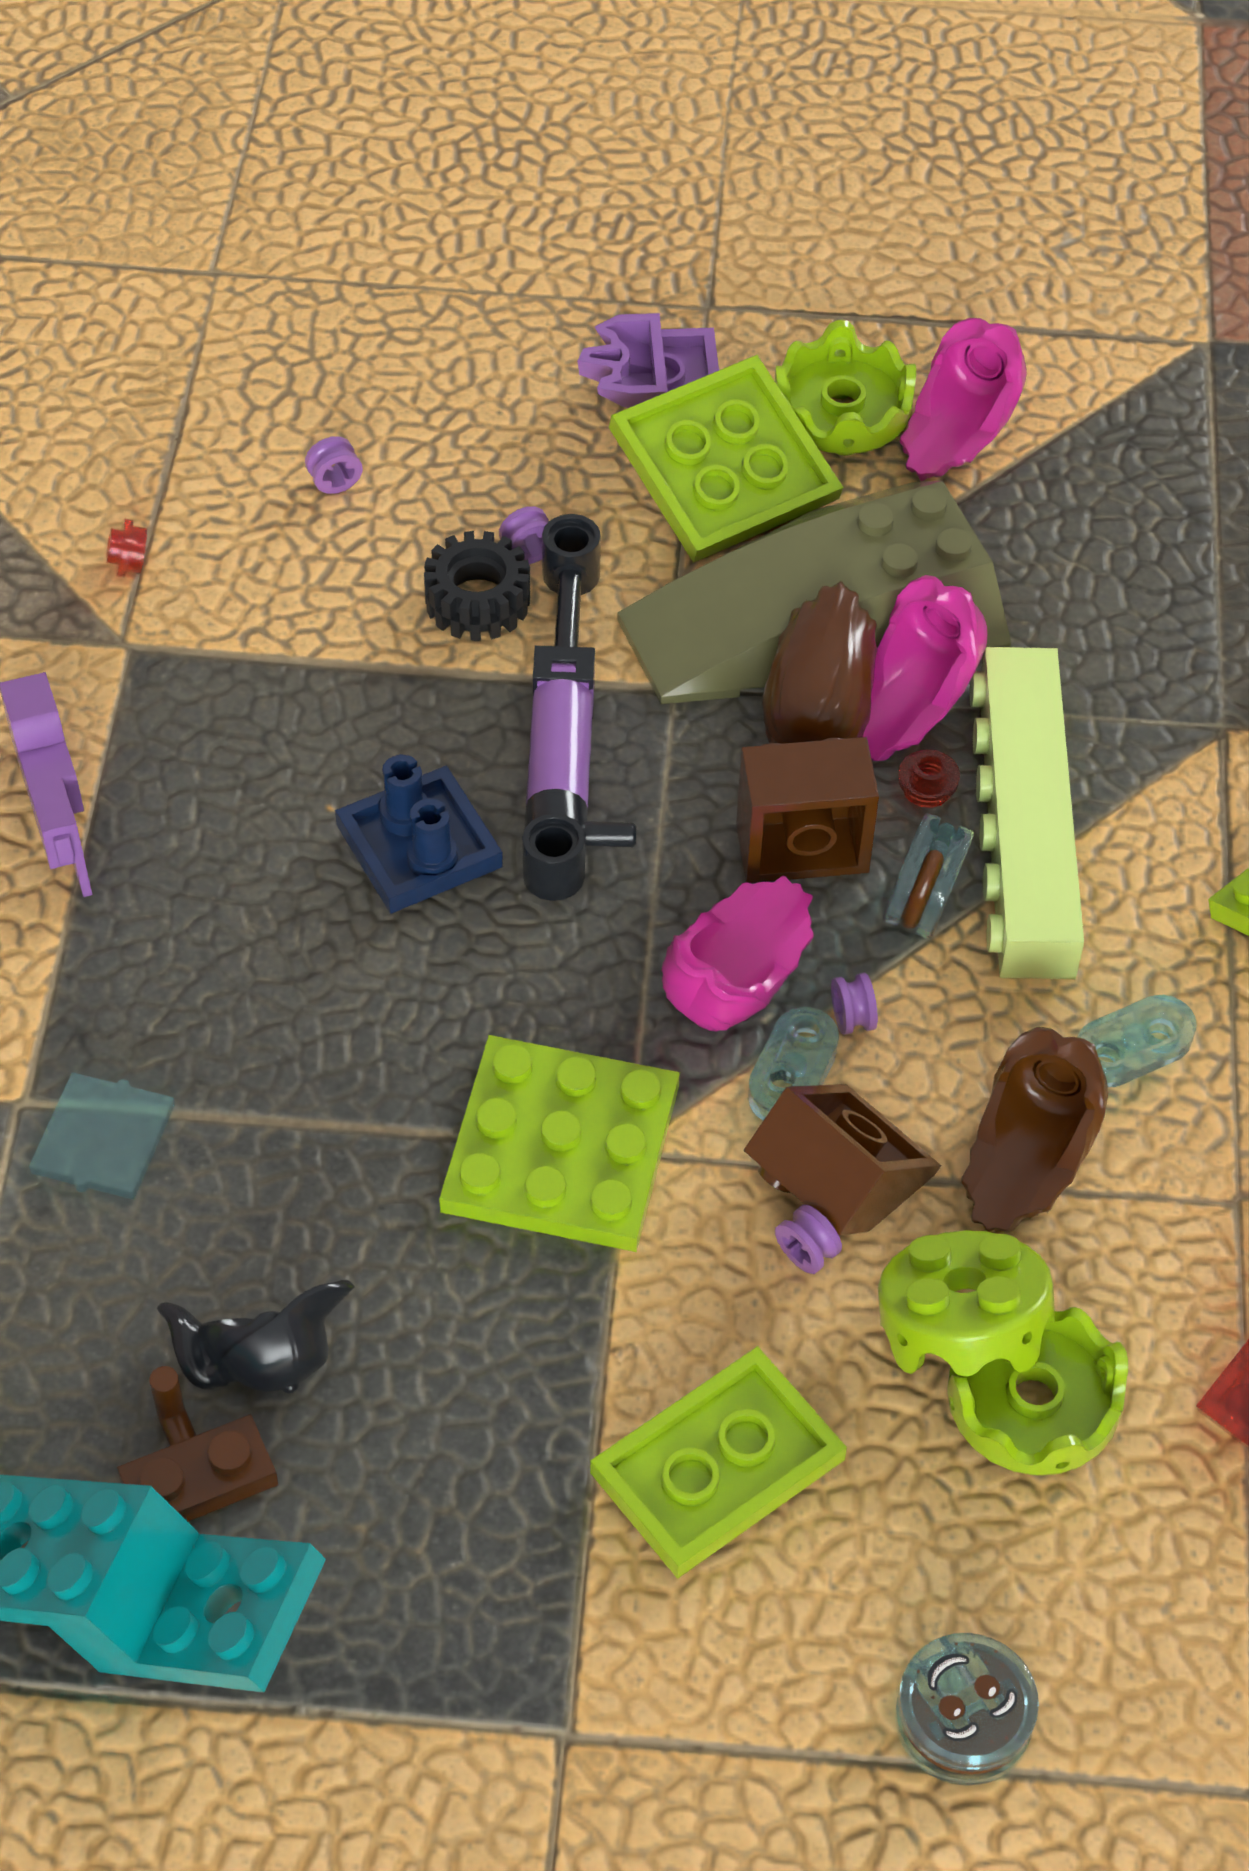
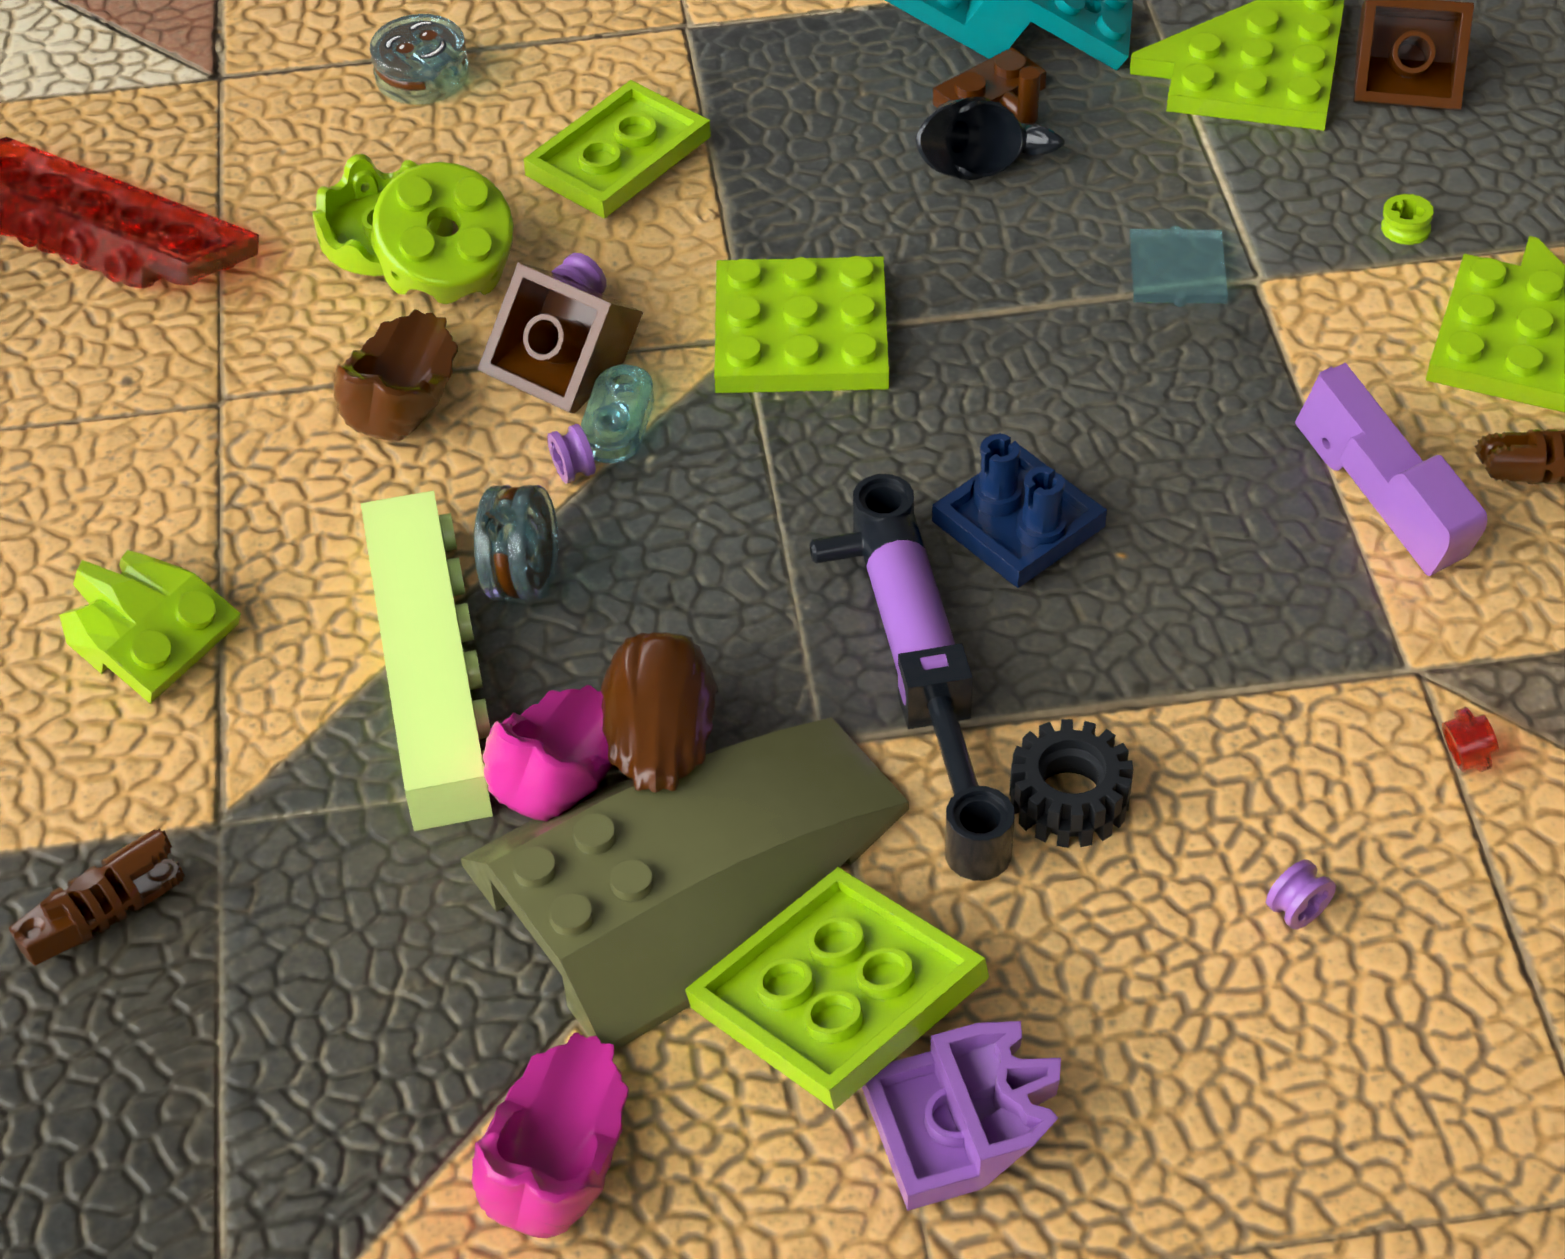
camera: 170 degrees right, 5 degrees down
(526, 530) = (1038, 852): medium lavender bush -> none
(738, 953) = (686, 452): dark pink hair -> none
(806, 809) = (646, 565): reddish brown brick -> none
(844, 368) = (705, 1087): lime plate -> none
(928, 789) = (529, 678): clear red plate -> none
(1129, 1041) = (311, 476): clear light blue plate -> none

